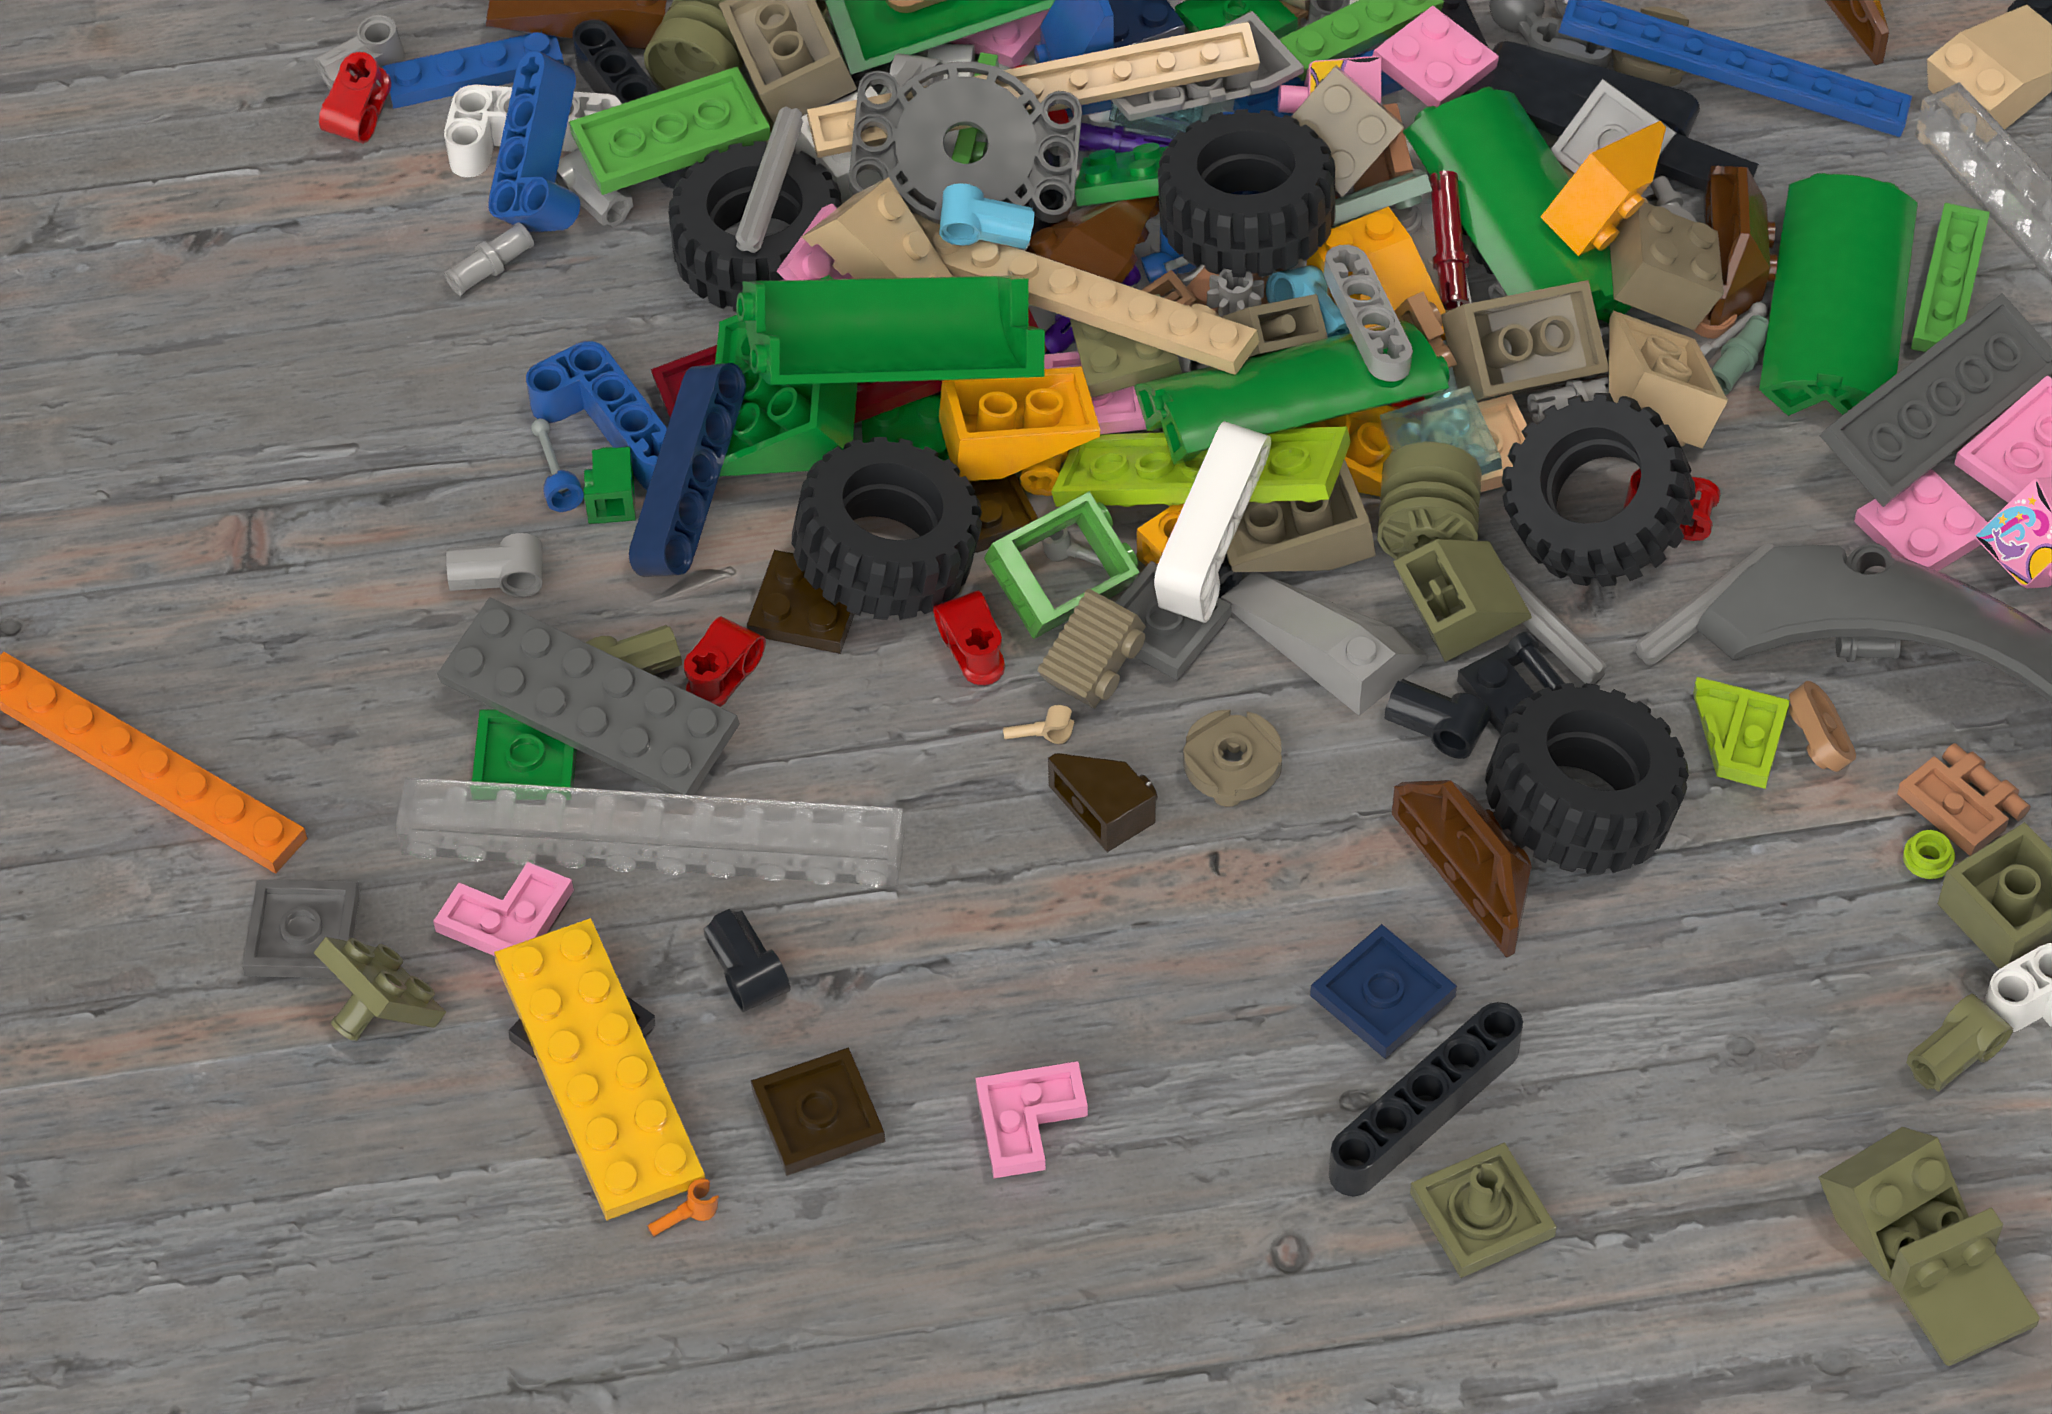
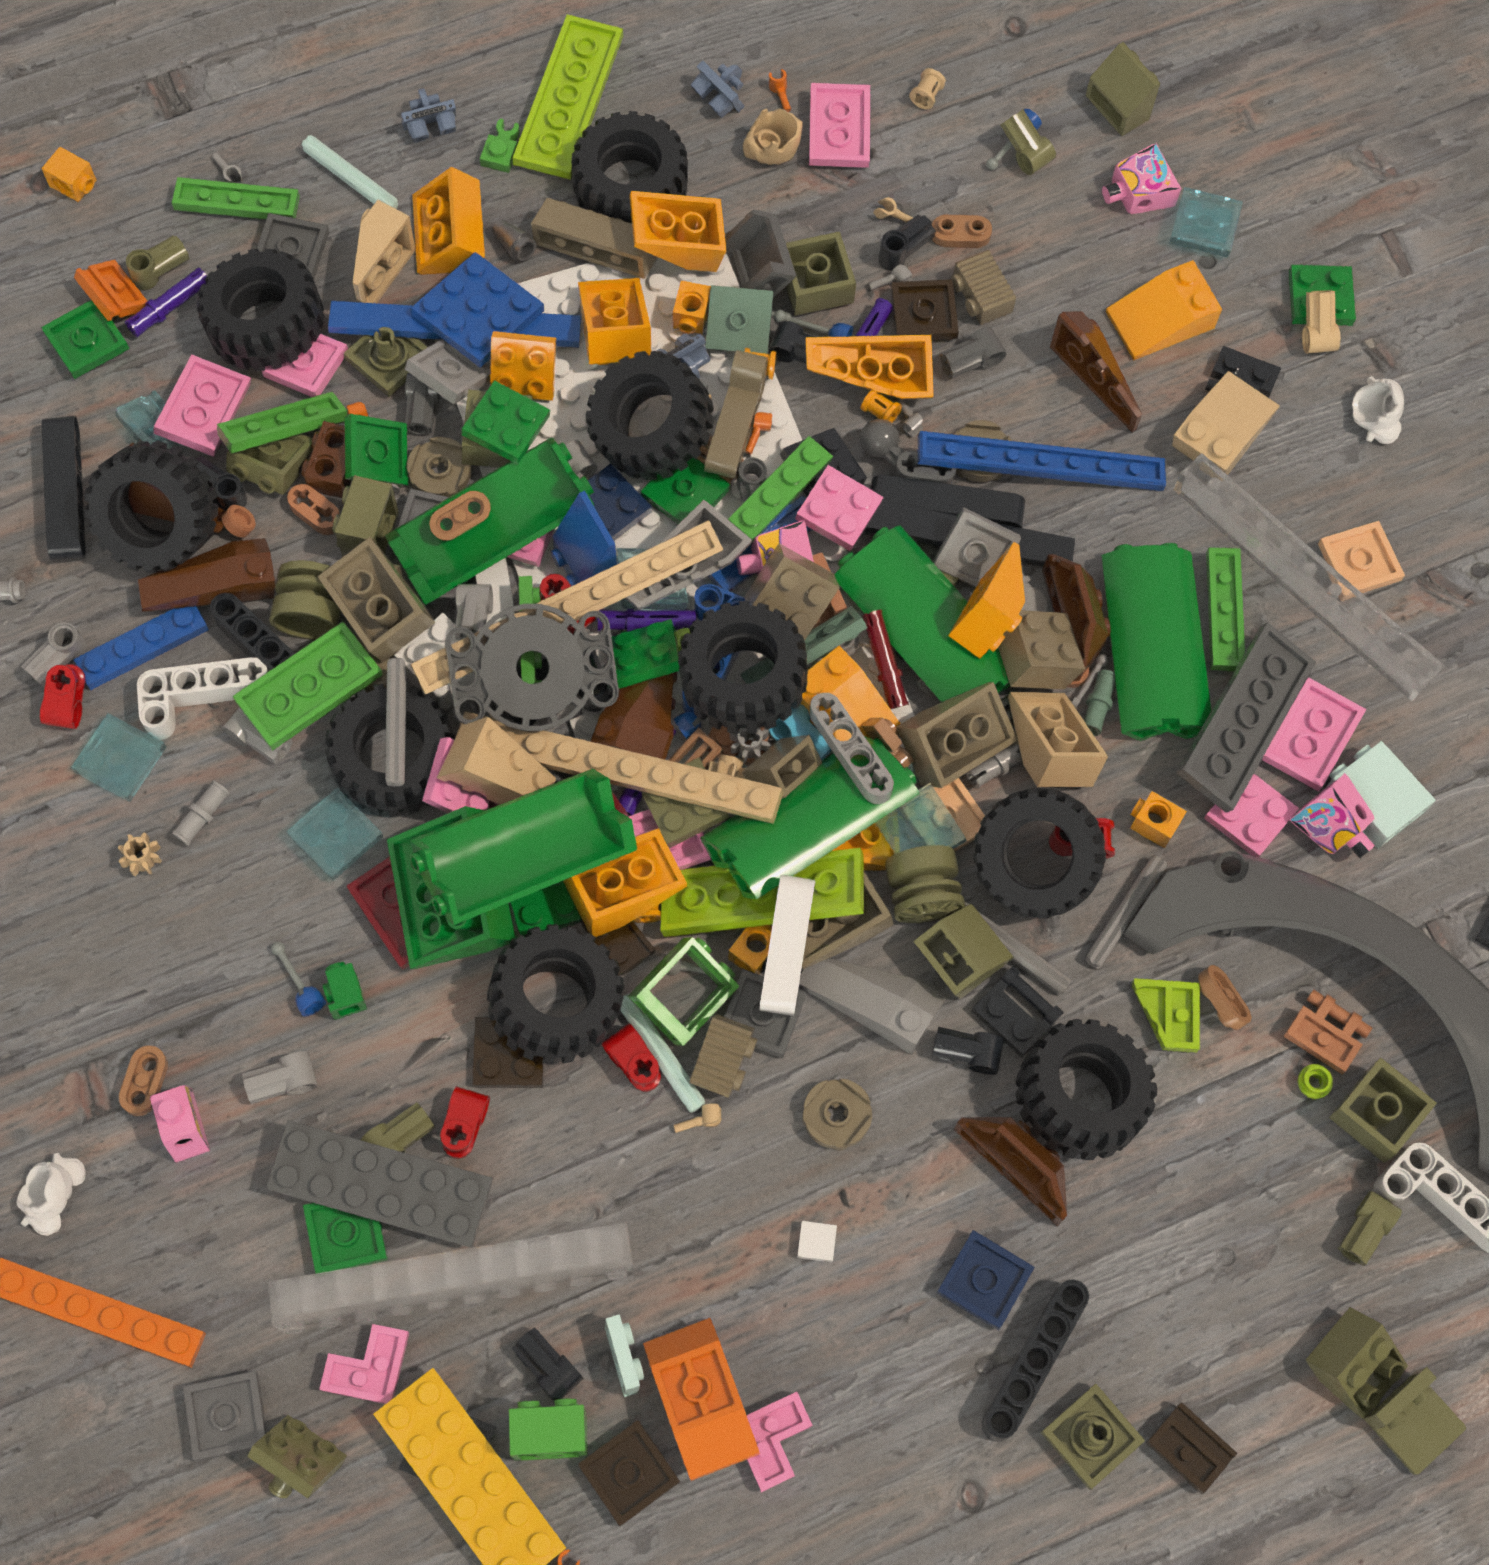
camera: 20 degrees left, 15 degrees up
(156, 632) = (47, 1192): none -> white hair
(315, 537) = (141, 1081): none -> medium nougat plate
(351, 564) = (178, 1120): none -> bright pink torso
(396, 286) = (135, 845): none -> tan gear
(405, 183) = (118, 757): none -> clear light blue plate
(532, 148) = (210, 721): blue beam -> none
(594, 382) = (332, 933): blue beam -> none
(654, 313) = (335, 834): none -> clear light blue plate
(687, 470) = (399, 974): dark blue beam -> none
(720, 1025) = (548, 1431): none -> bright green brick
(853, 979) = (628, 1369): none -> light aqua plate
(941, 1041) = (701, 1399): none -> orange slope
(971, 217) = (554, 728): medium azure piece -> none
(1014, 644) = (666, 1059): none -> light aqua axle
(1104, 796) = (759, 1170): dark brown slope -> none
(1160, 900) = (817, 1241): none -> white tile
(1622, 1255) = (1191, 1448): none -> dark brown plate
(1783, 501) = (1156, 832): none -> light orange brick

